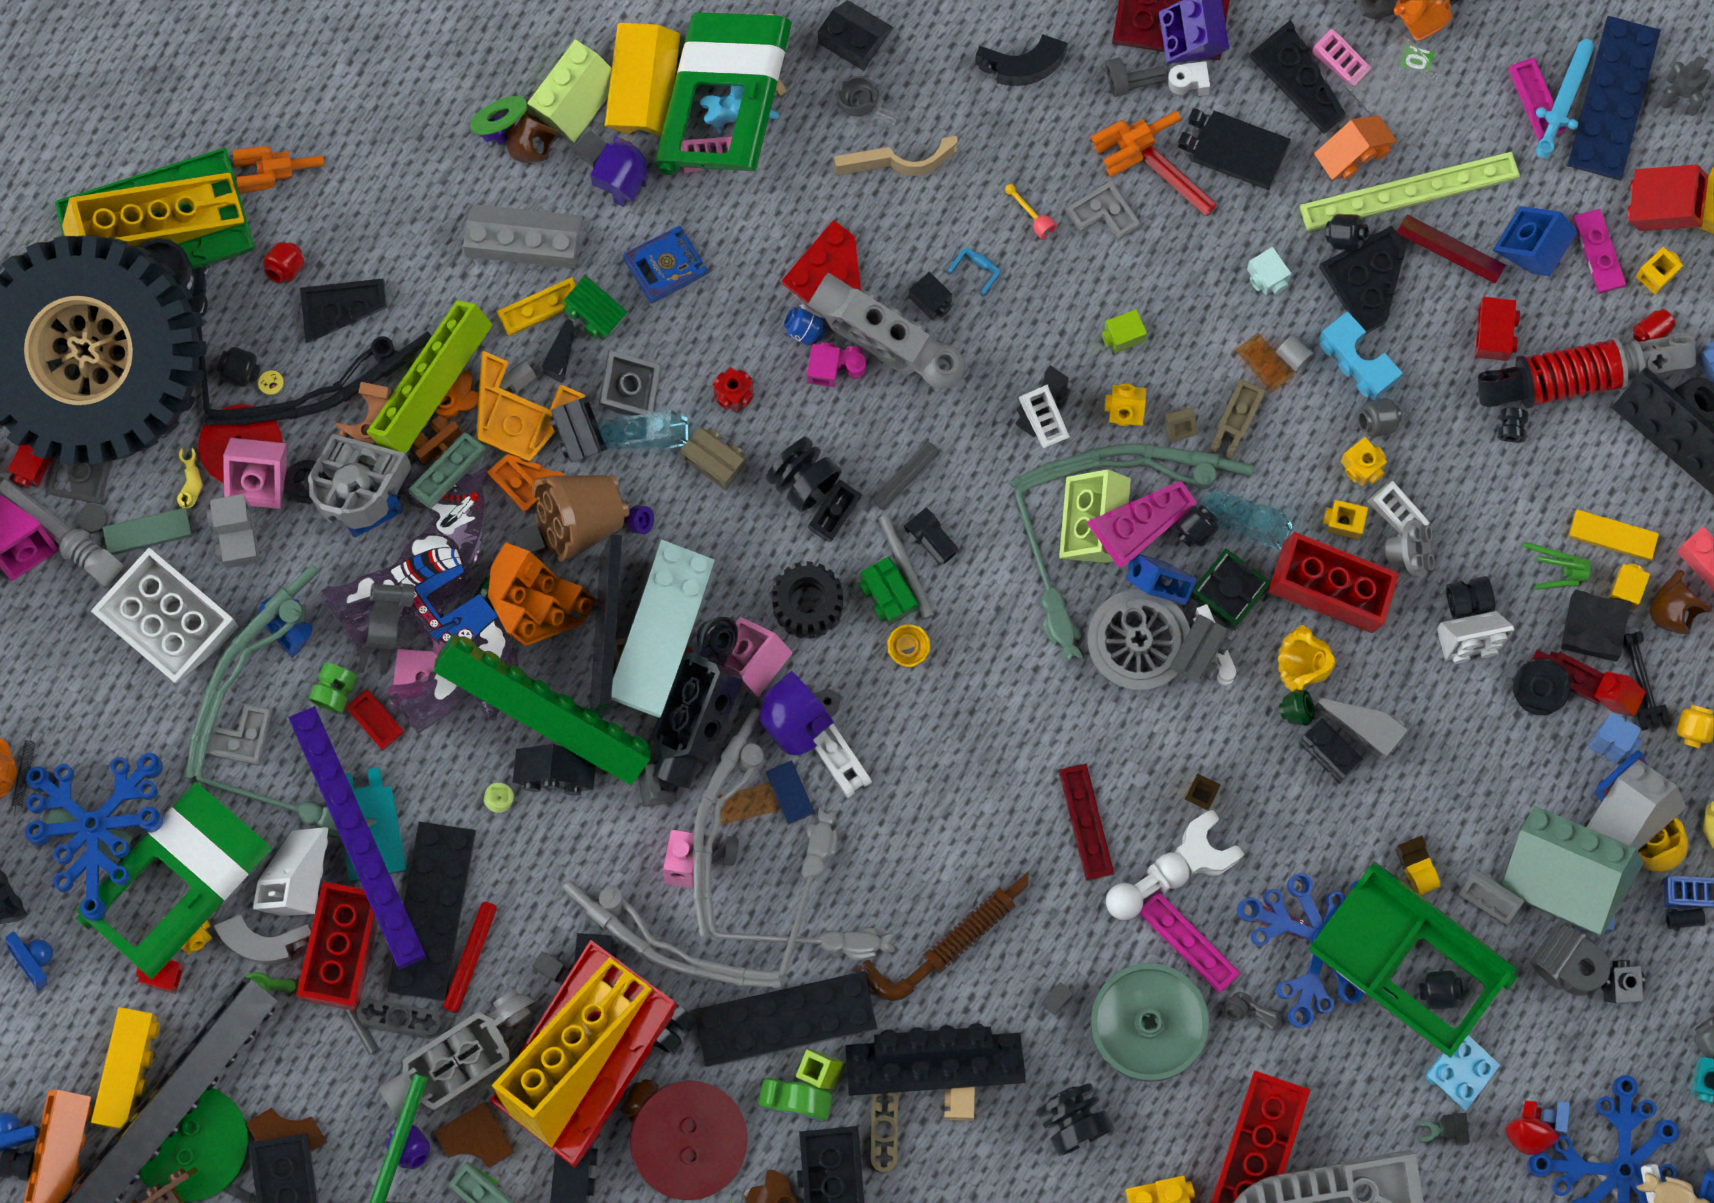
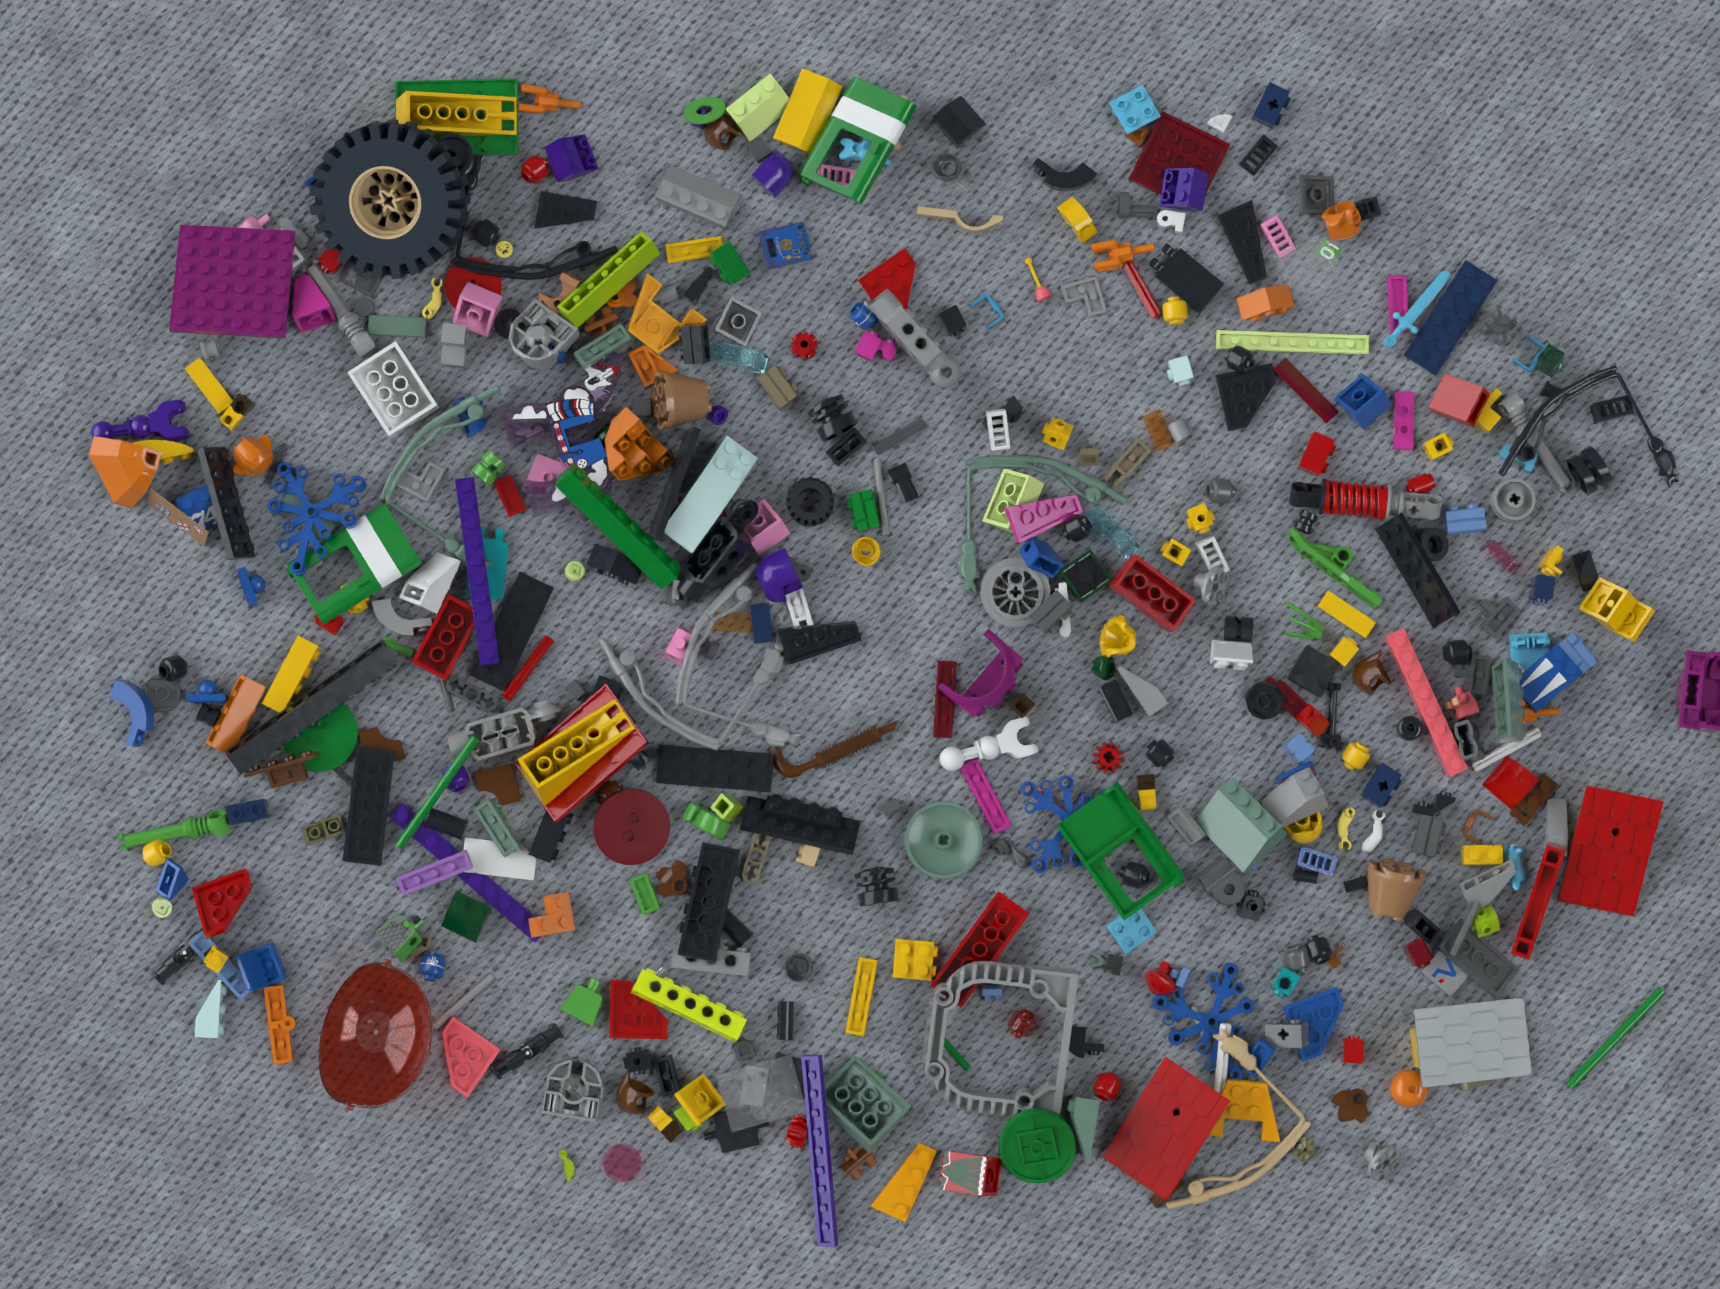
camera: 15 degrees right, 10 degrees up
(329, 232) = (571, 157): none -> dark purple slope
(384, 620) = (533, 436): dark grey flag -> none
(869, 794) = (812, 640): none -> black wing
(1060, 109) = (1078, 219): none -> yellow brick
(1124, 331) = (1071, 382): lime brick -> none
(1148, 775) = (991, 683): none -> magenta piece
(1235, 195) = (1175, 311): none -> yellow head
(1340, 840) = (1114, 753): none -> red gear
(1373, 376) = (1225, 462): medium azure arch -> none
(1419, 804) = (1160, 753): none -> black head
(1567, 471) = (1327, 560): none -> bright green piece

